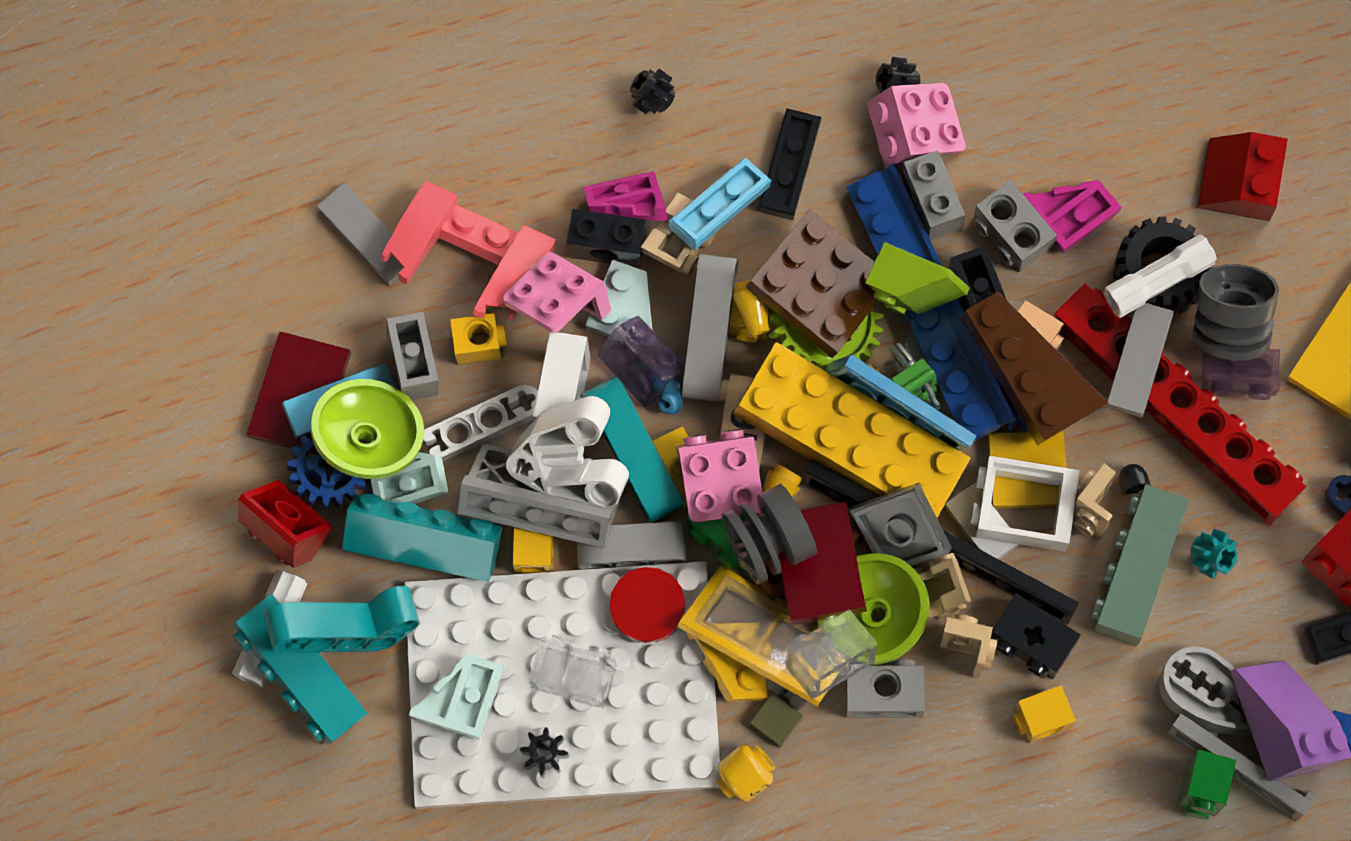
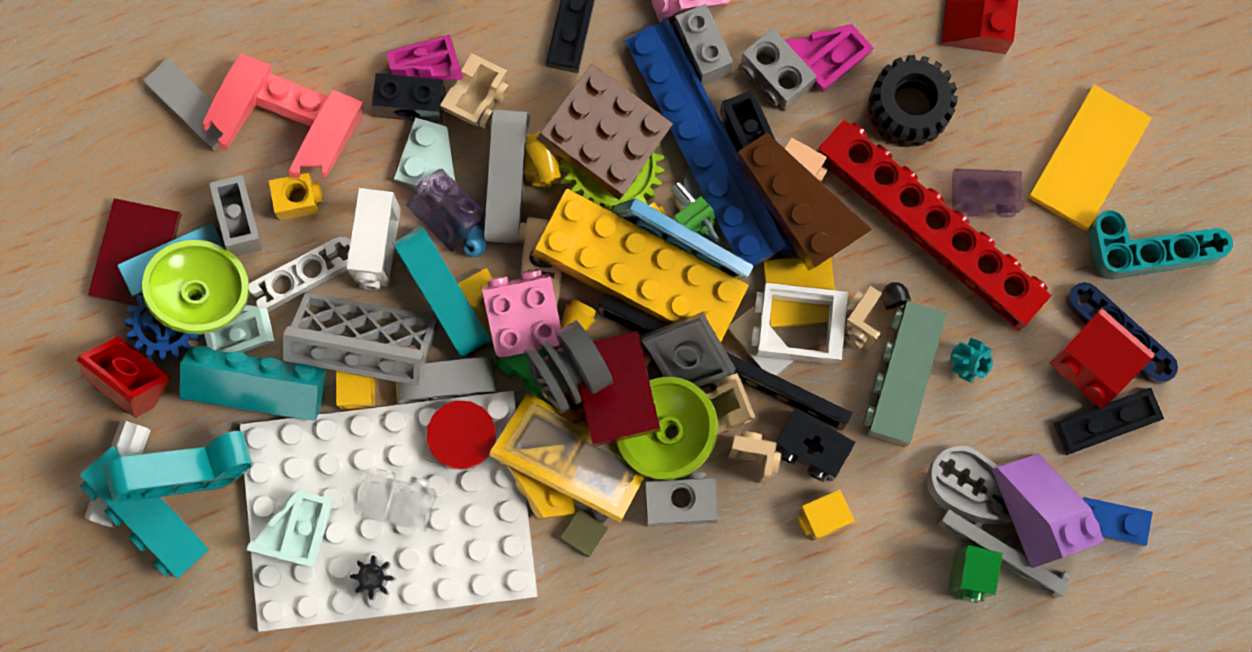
camera: 10 degrees left, 5 degrees up
(552, 460) = (366, 304): white connector -> none
(556, 292) = (364, 151): bright pink bracket -> none
(719, 203) = (510, 62): medium azure tile -> none
(745, 772) = (558, 583): yellow head -> none
(830, 653) = (629, 474): clear brick -> none
(912, 282) = (688, 127): lime slope -> none
(1140, 359) = (897, 186): light grey tile -> none
(1155, 278) = (931, 98): white axle -> none
(1235, 312) = (981, 139): dark grey wheel -> none

